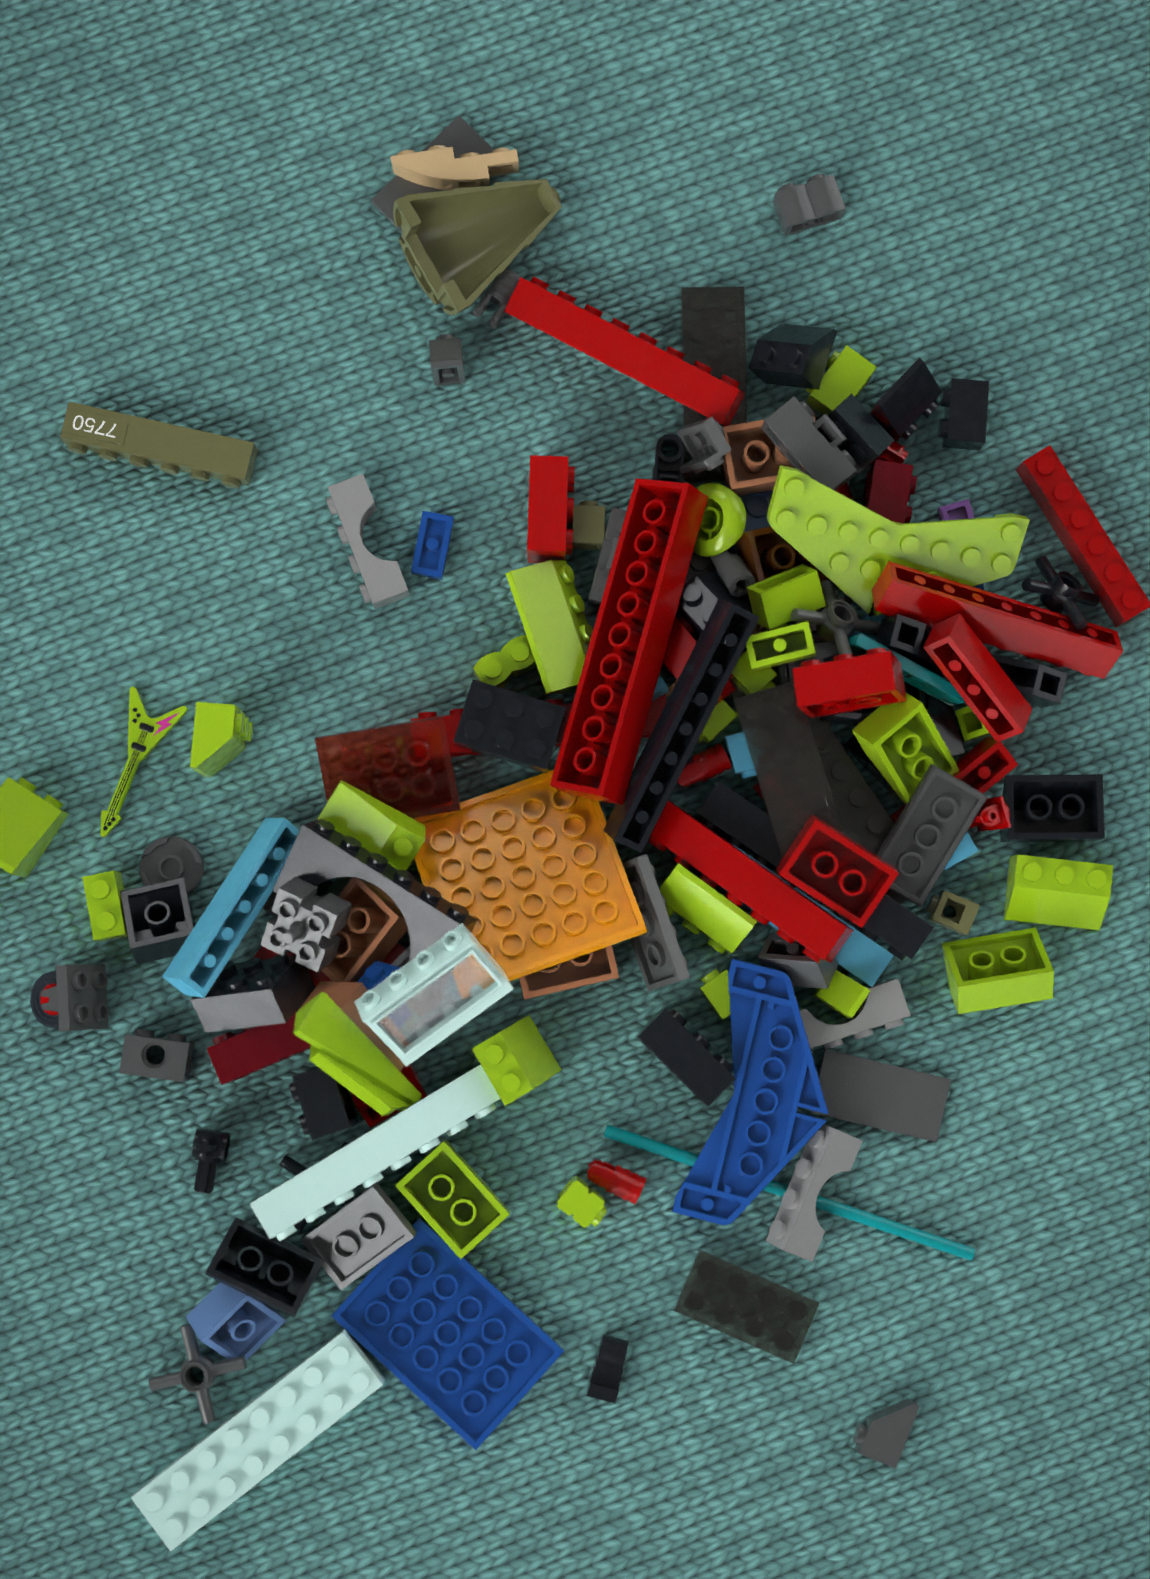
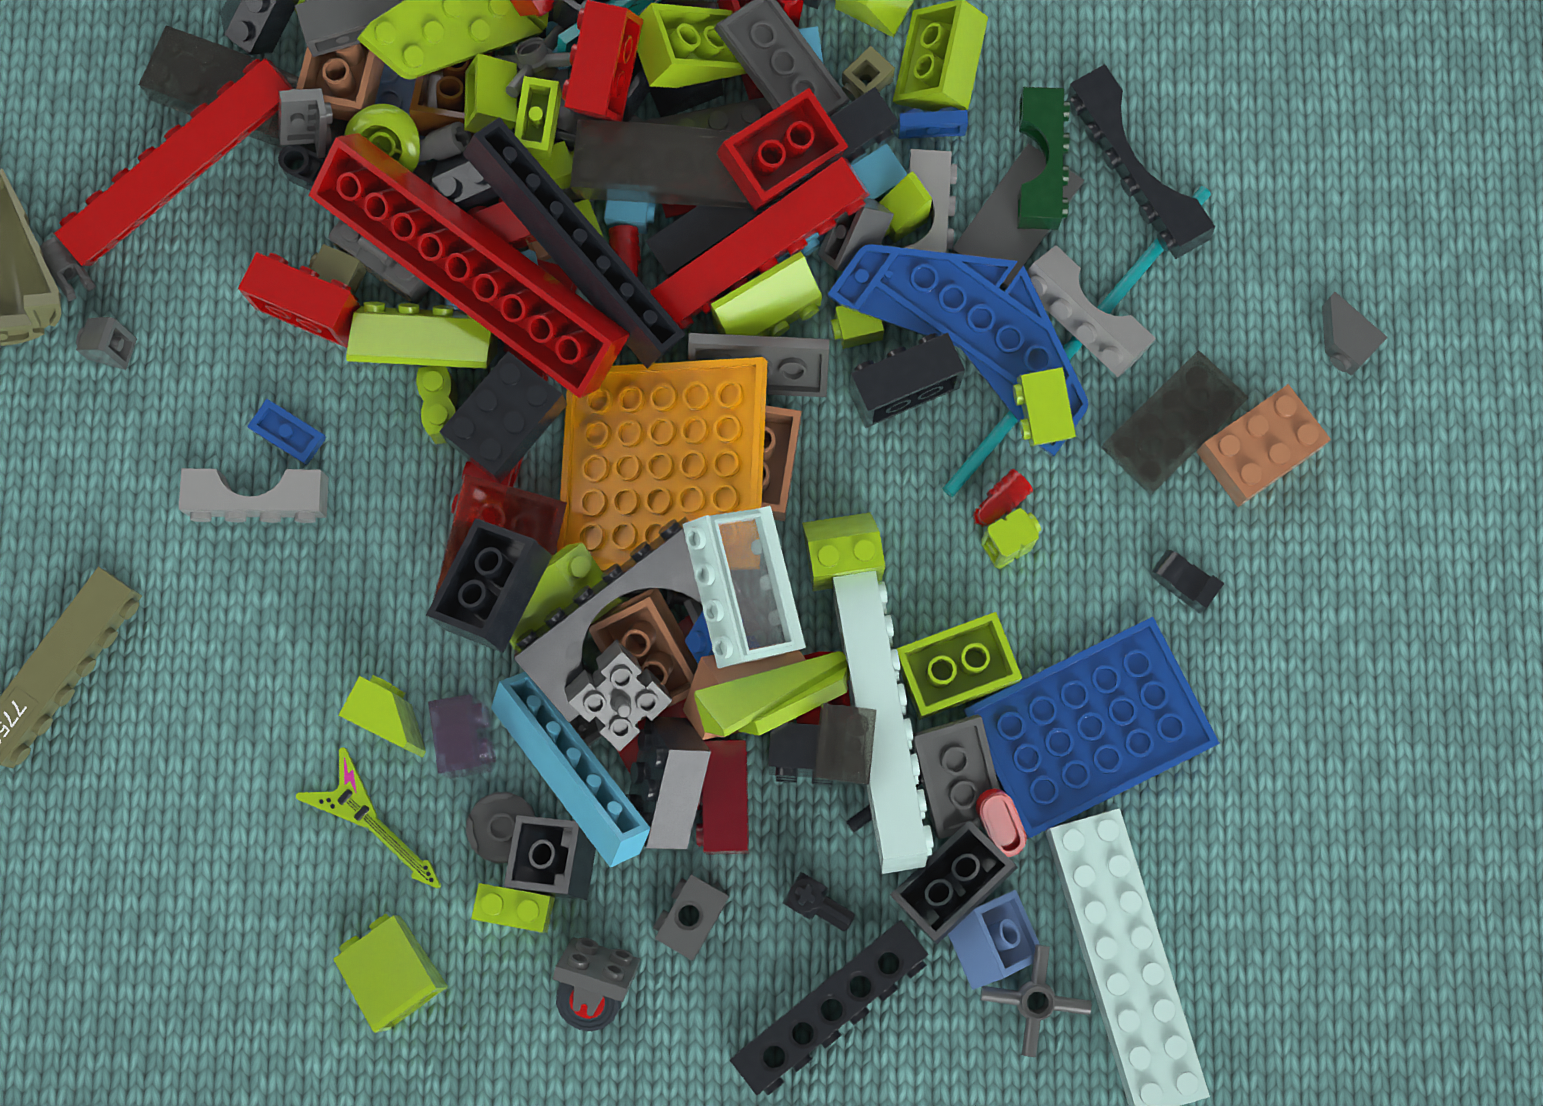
camera: 60 degrees left, 5 degrees down
(50, 1172) = (766, 1078): none -> black brick
(229, 804) = (461, 736): none -> clear purple brick
(334, 1133) = (845, 744): none -> clear smoke plate
(334, 1287) = (1001, 821): none -> tile
(352, 779) = (489, 585): none -> black brick
(706, 1188) = (1044, 407): none -> lime brick
(754, 1392) = (1263, 445): none -> nougat brick
(928, 975) = (942, 123): none -> blue plate
(931, 1238) = (1175, 216): none -> black arch
(975, 1085) = (1042, 119): none -> dark green arch

